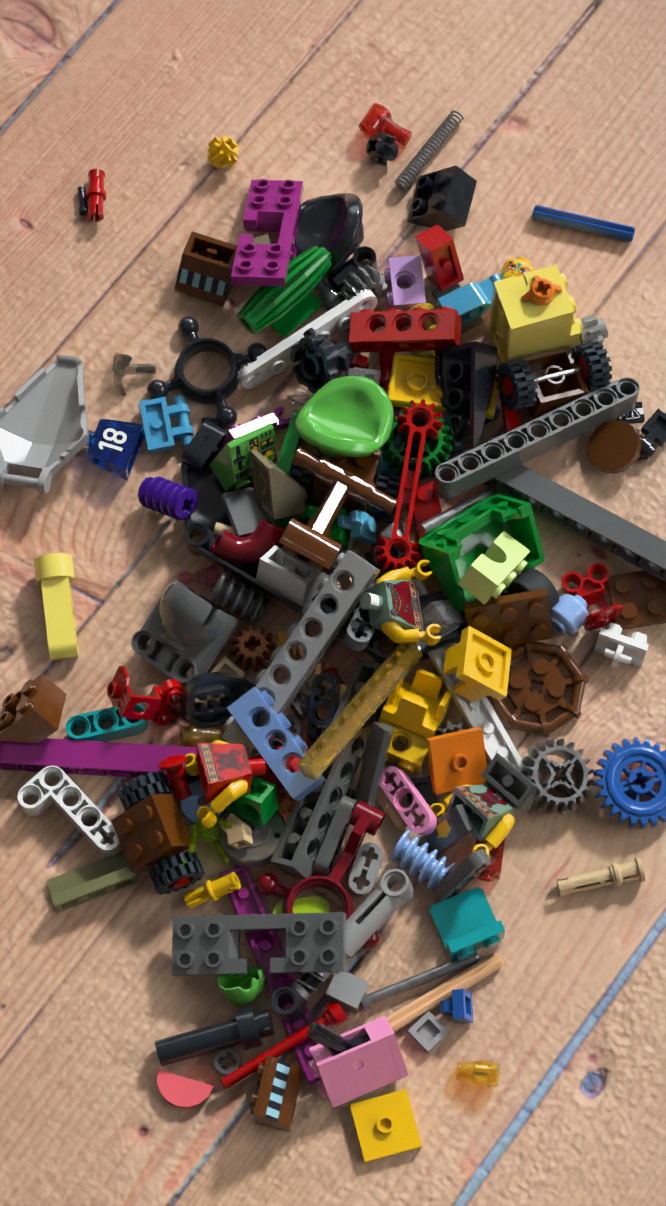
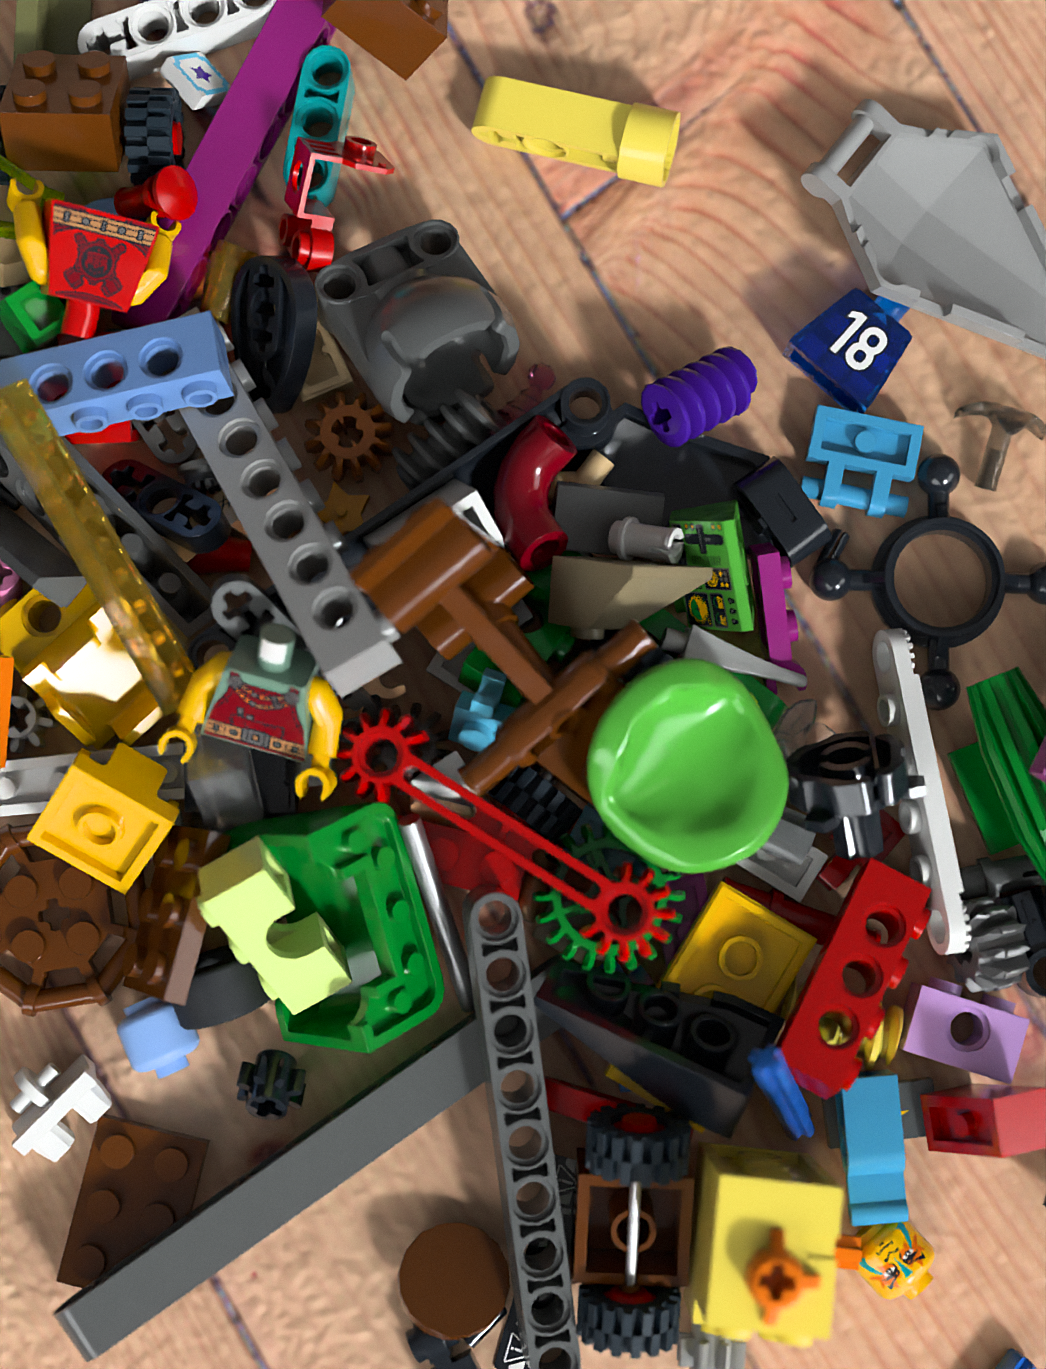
camera: 110 degrees right, 15 degrees up
(106, 792) = (195, 79): none -> white tile
(249, 487) = (633, 539): none -> white pin
(286, 445) = (706, 646): none -> light grey piece
(465, 335) = (782, 1092): none -> blue axle
(566, 556) = (271, 1084): none -> black gear
(593, 593) = (191, 1101): red piece -> none

